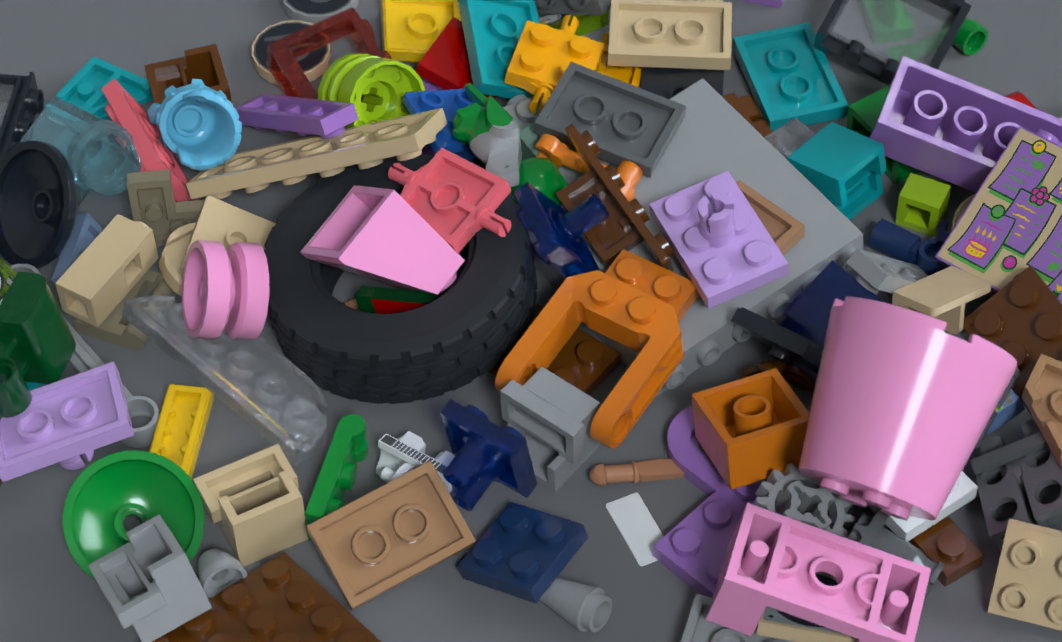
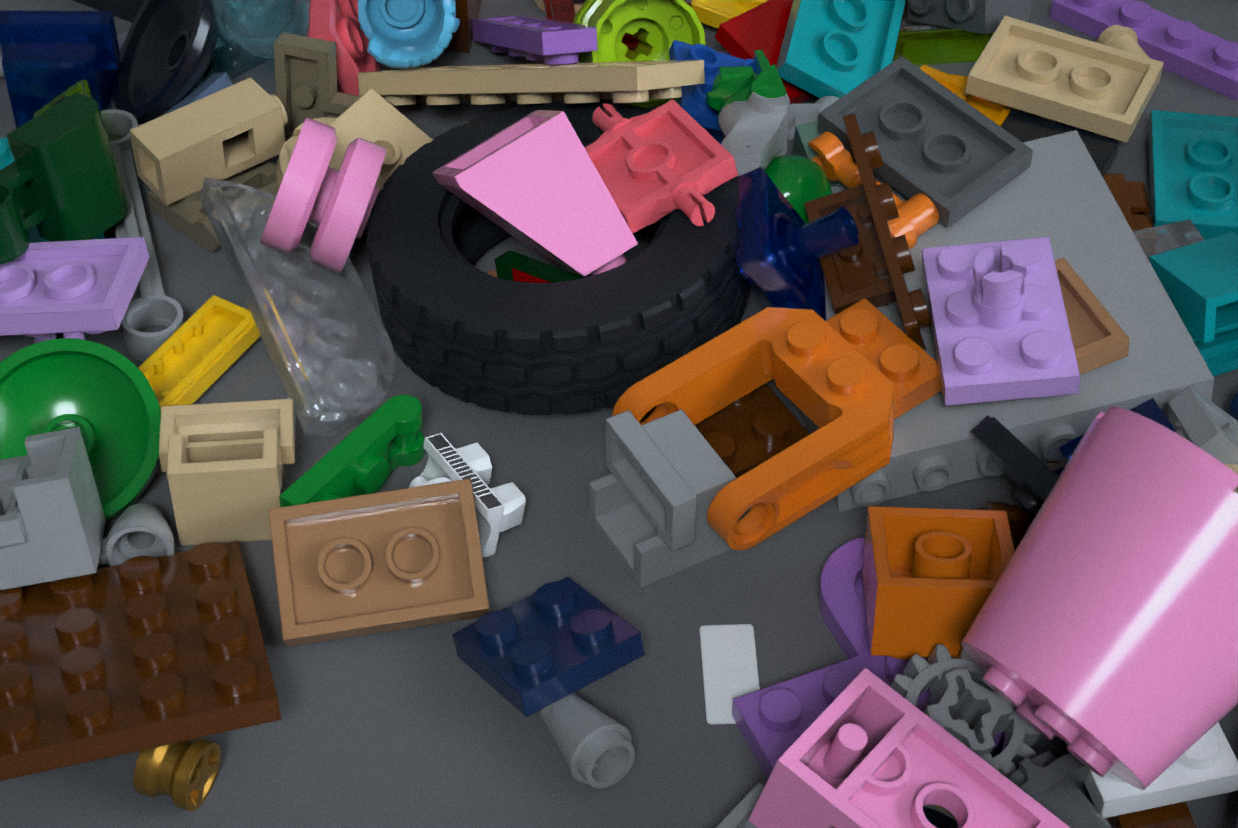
camera: 20 degrees right, 5 degrees down
(484, 455) = (551, 502): clear blue plate -> none
(545, 55) = (884, 40): light orange plate -> none
(636, 471) = (770, 598): nougat piece -> none

